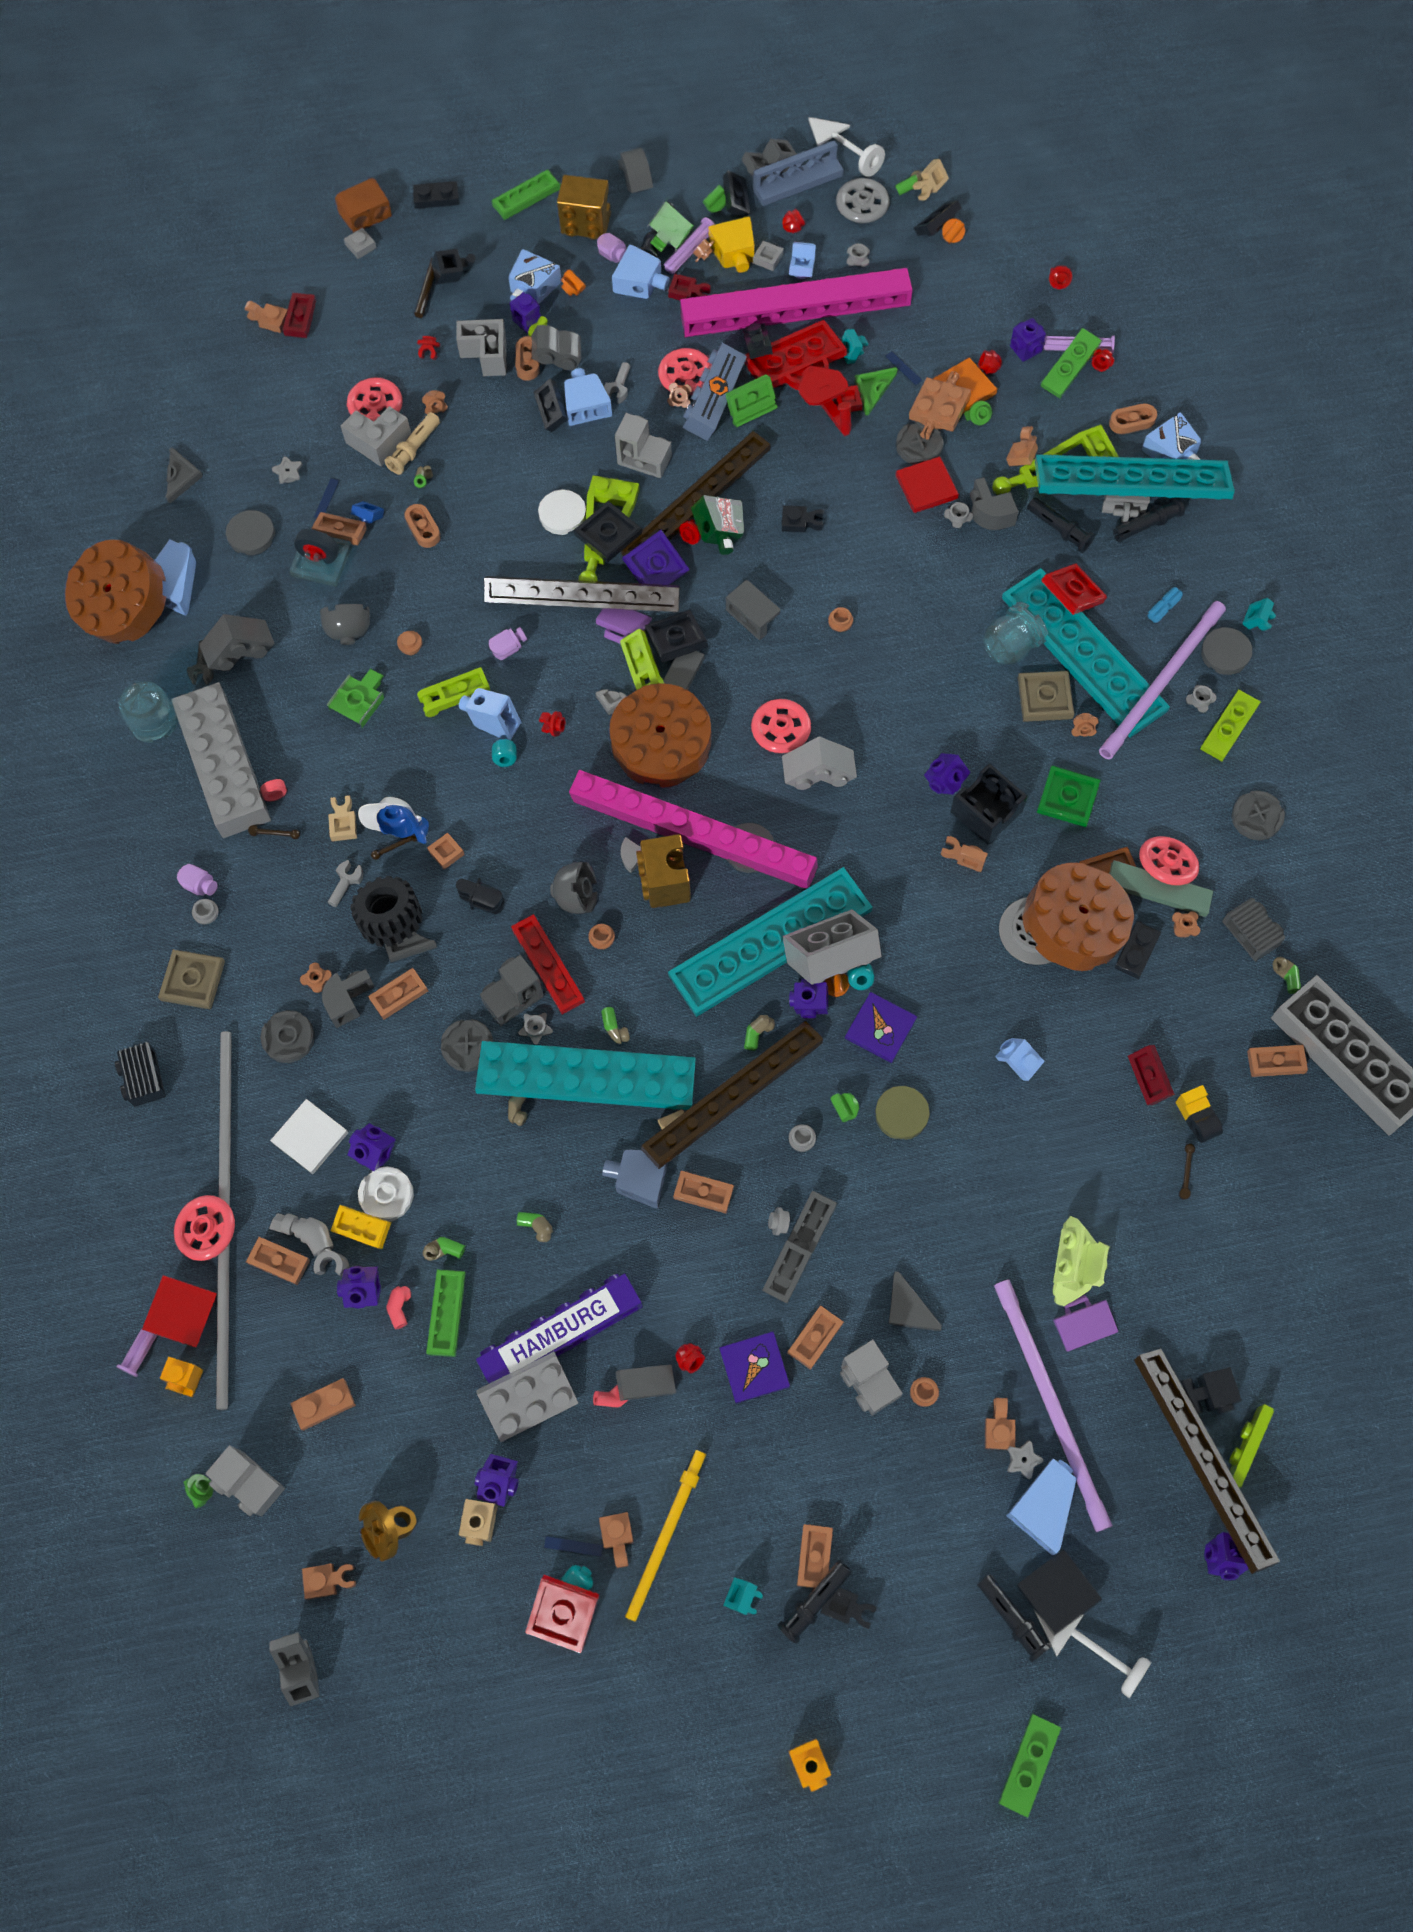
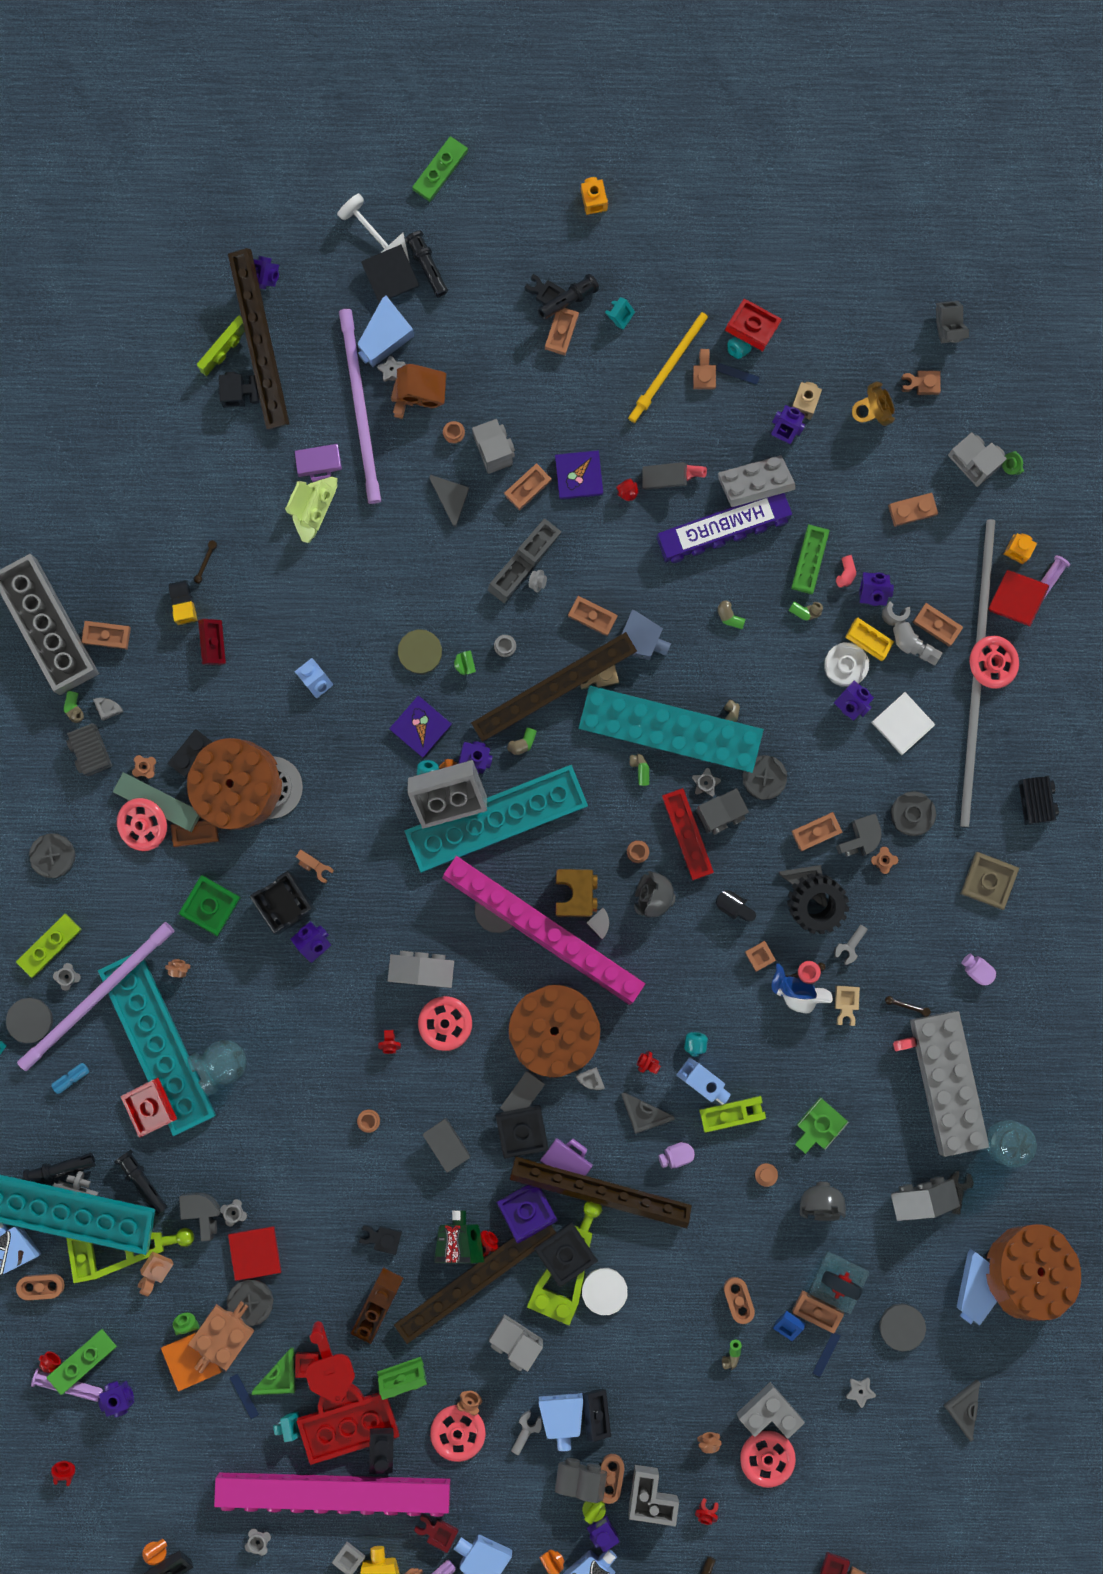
camera: 175 degrees left, 15 degrees up
(205, 911) = (973, 940): light grey plate -> none
(388, 843) = (809, 972): none -> coral tile
(407, 450) = (743, 1390): tan pin -> none
(548, 676) = (643, 1115): none -> dark grey tile
(640, 659) = (558, 1108): lime plate -> none
(710, 397) = (434, 1398): sand blue brick -> none
(790, 460) = (377, 1305): none -> reddish brown slope
(802, 260) = (315, 1543): light blue bracket -> none
(836, 692) = (389, 1044): none -> red plate
(980, 1437) = (421, 385): none -> dark orange piece
(989, 362) = (160, 1381): red plate -> none
(1045, 696) = (203, 1007): dark tan tile -> none
(1249, 982) = (107, 708): none -> light grey tile

